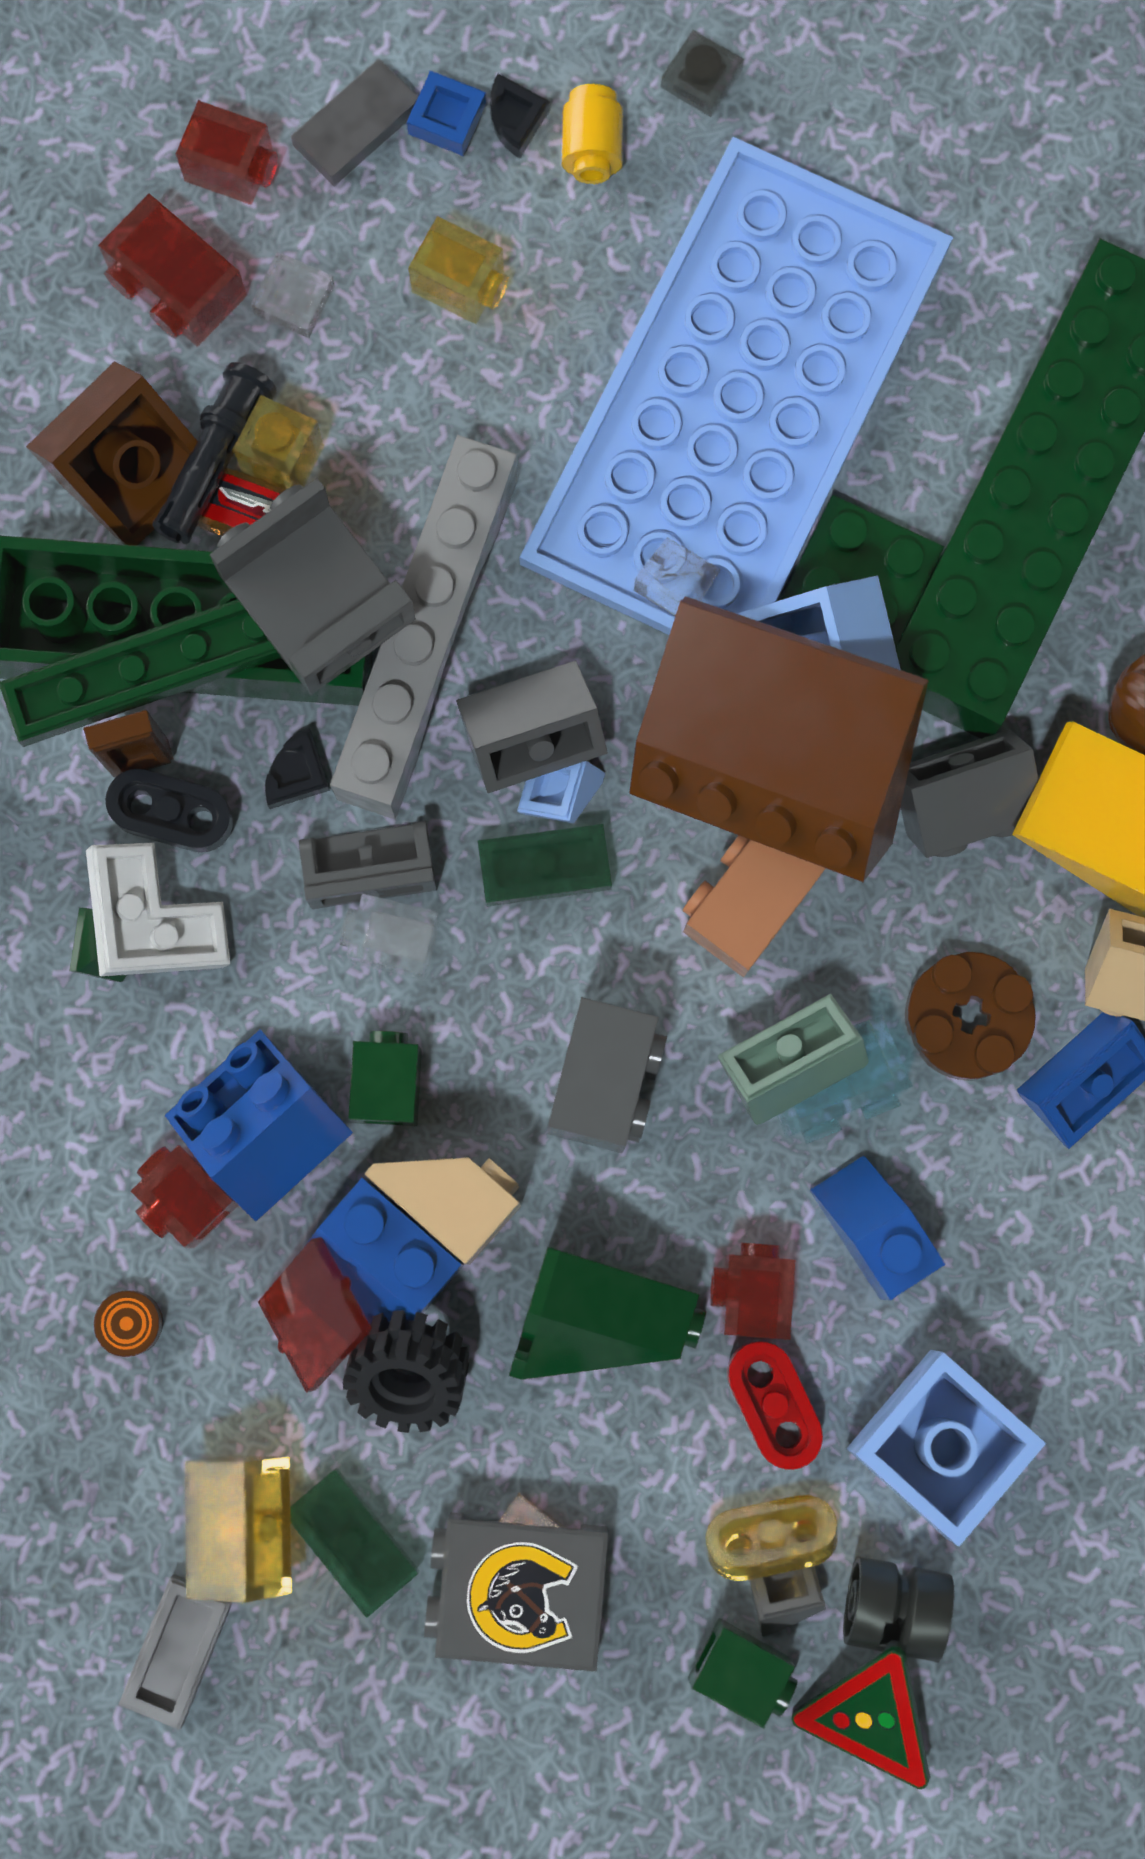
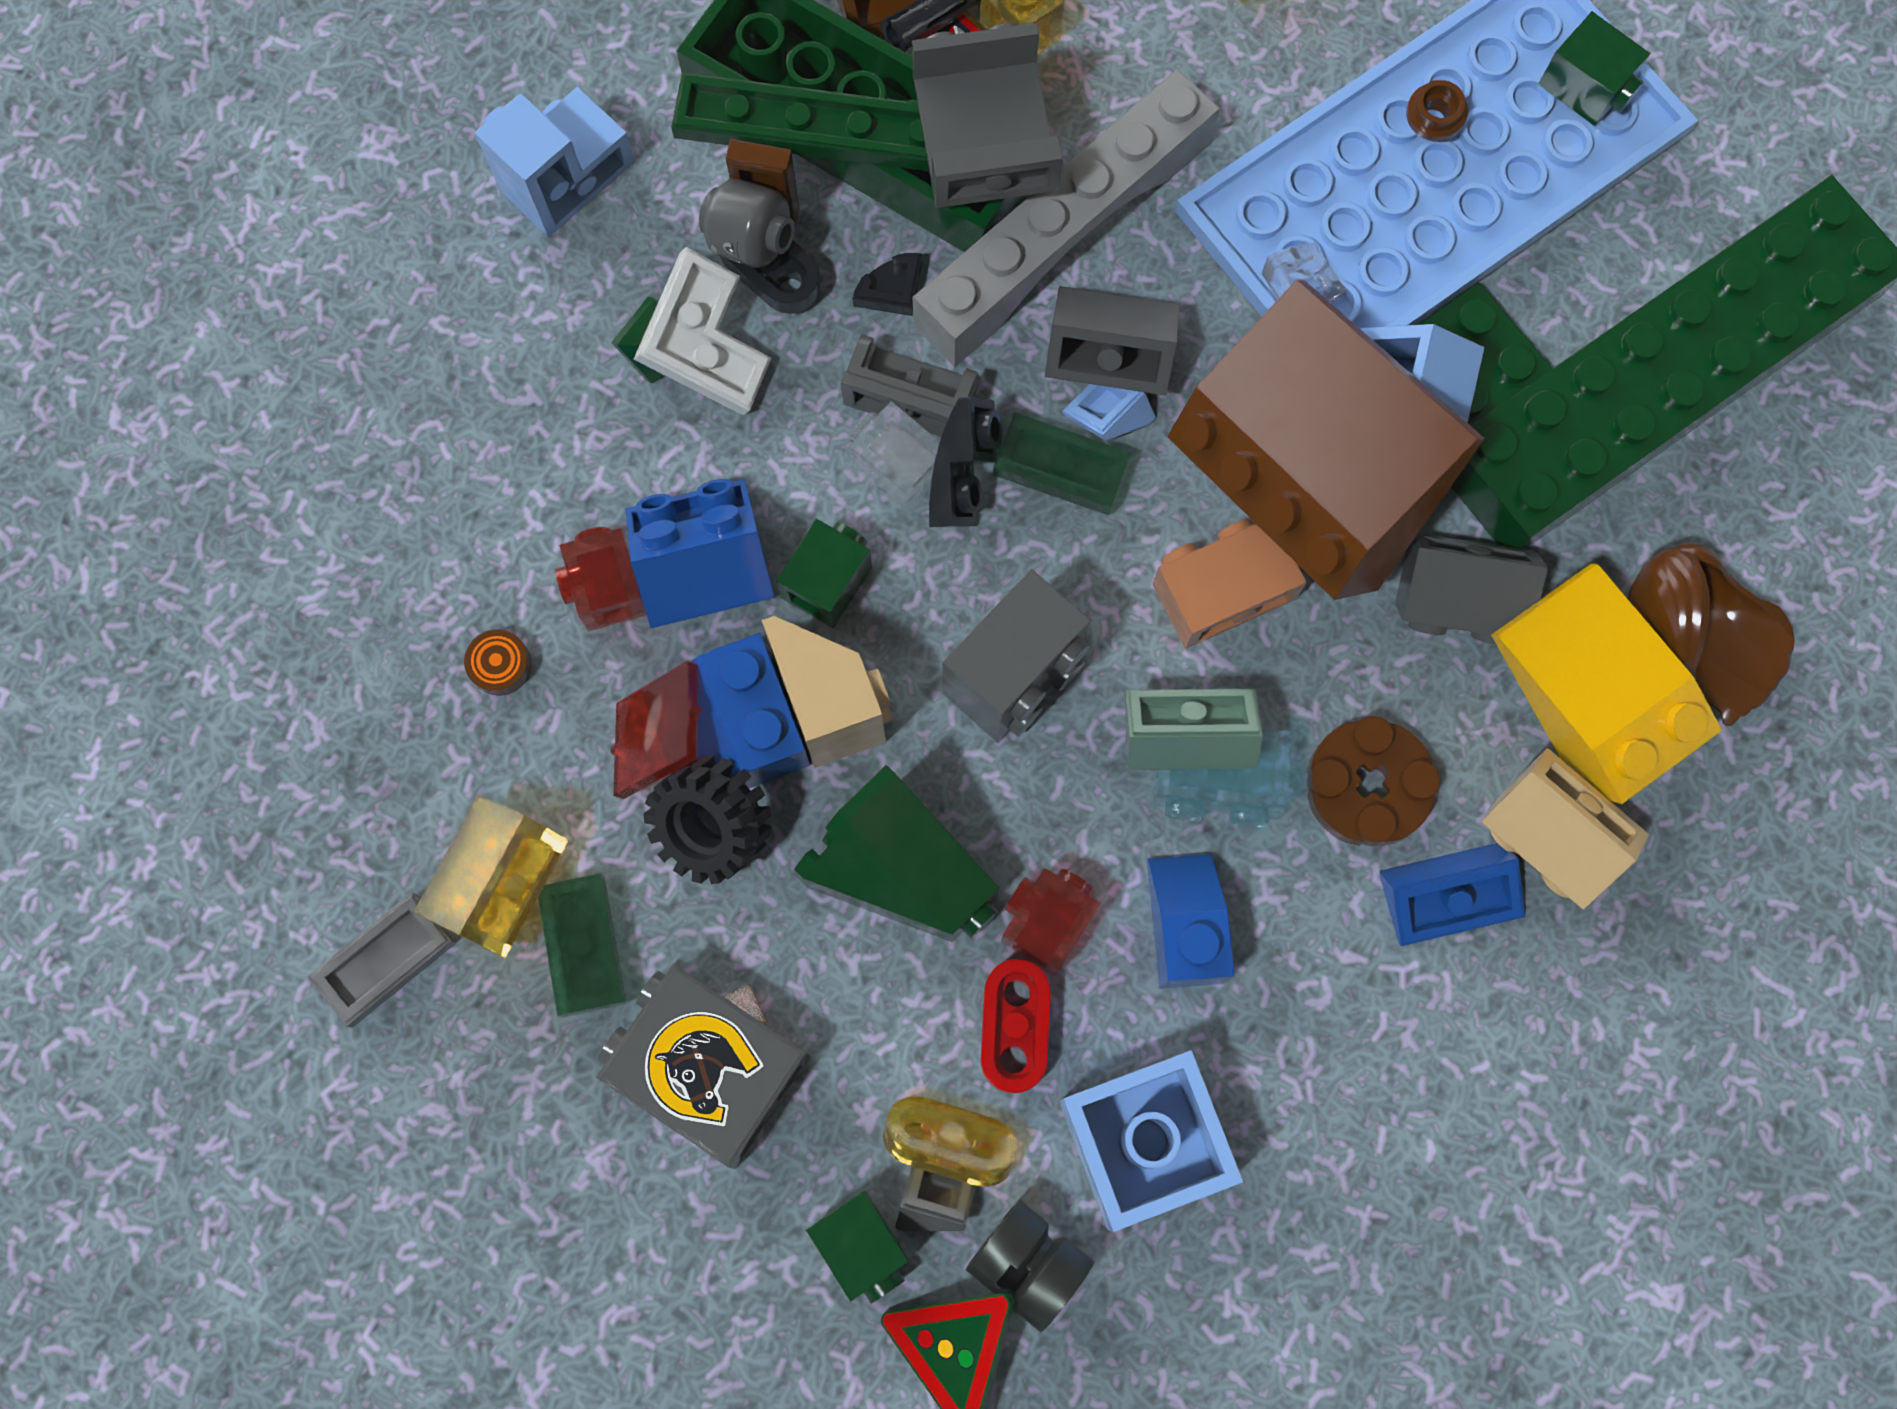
camera: 30 degrees right, 5 degrees down
(135, 792) = (746, 222): none -> dark grey head
(454, 896) = (967, 439): none -> black slope
(718, 335) = (1438, 96): none -> reddish brown plate
(840, 240) = (1595, 69): none -> dark green brick

